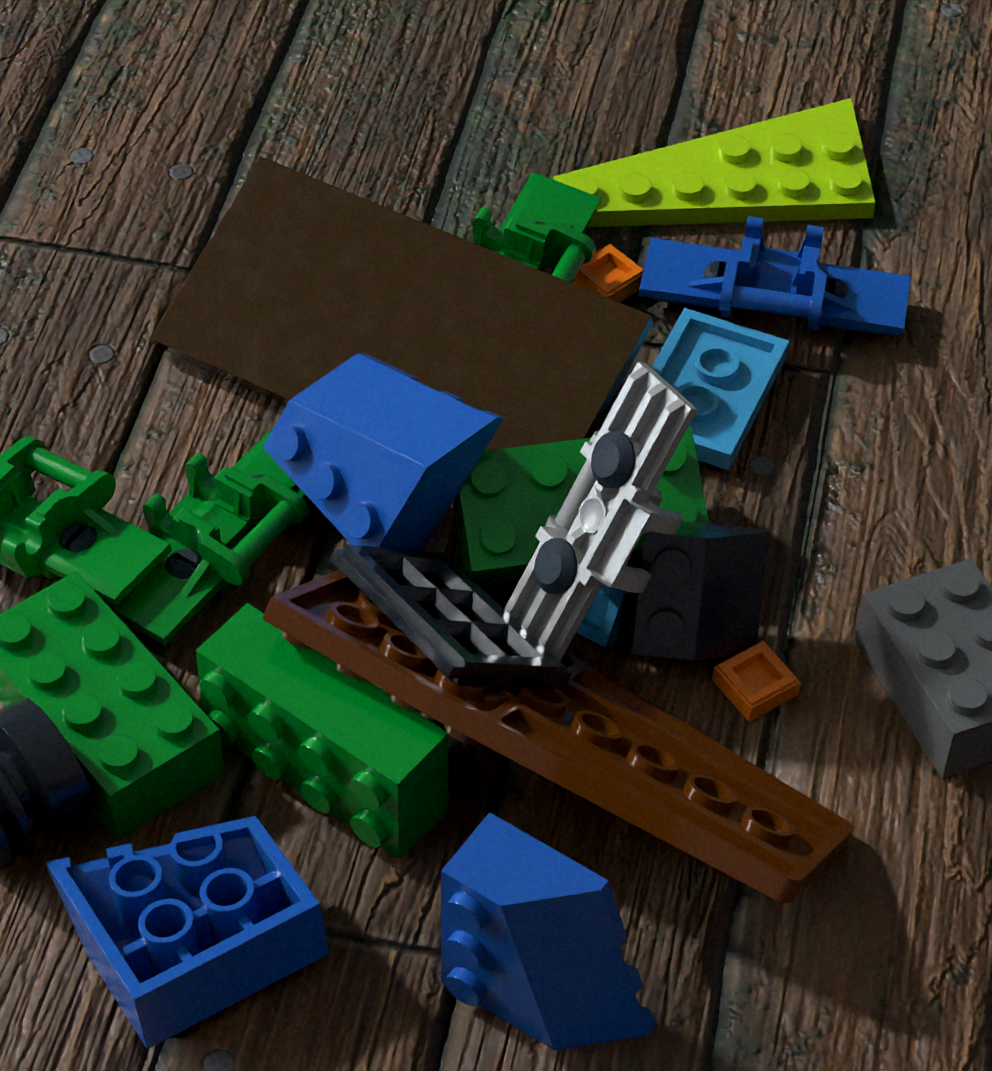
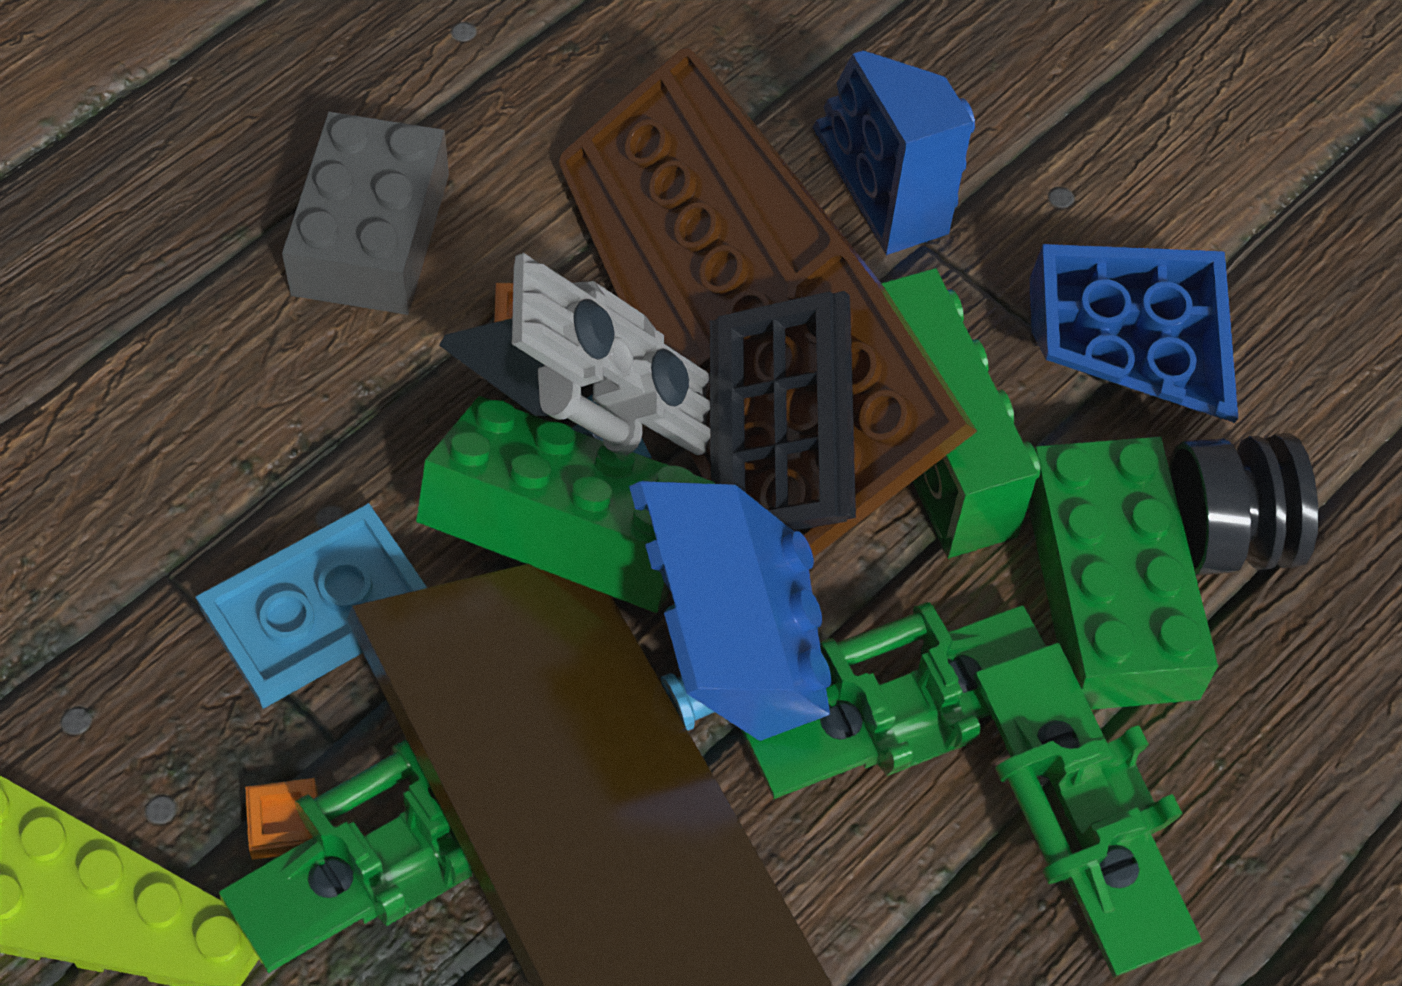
camera: 150 degrees left, 10 degrees up
(776, 282) = (127, 701): blue piece -> none

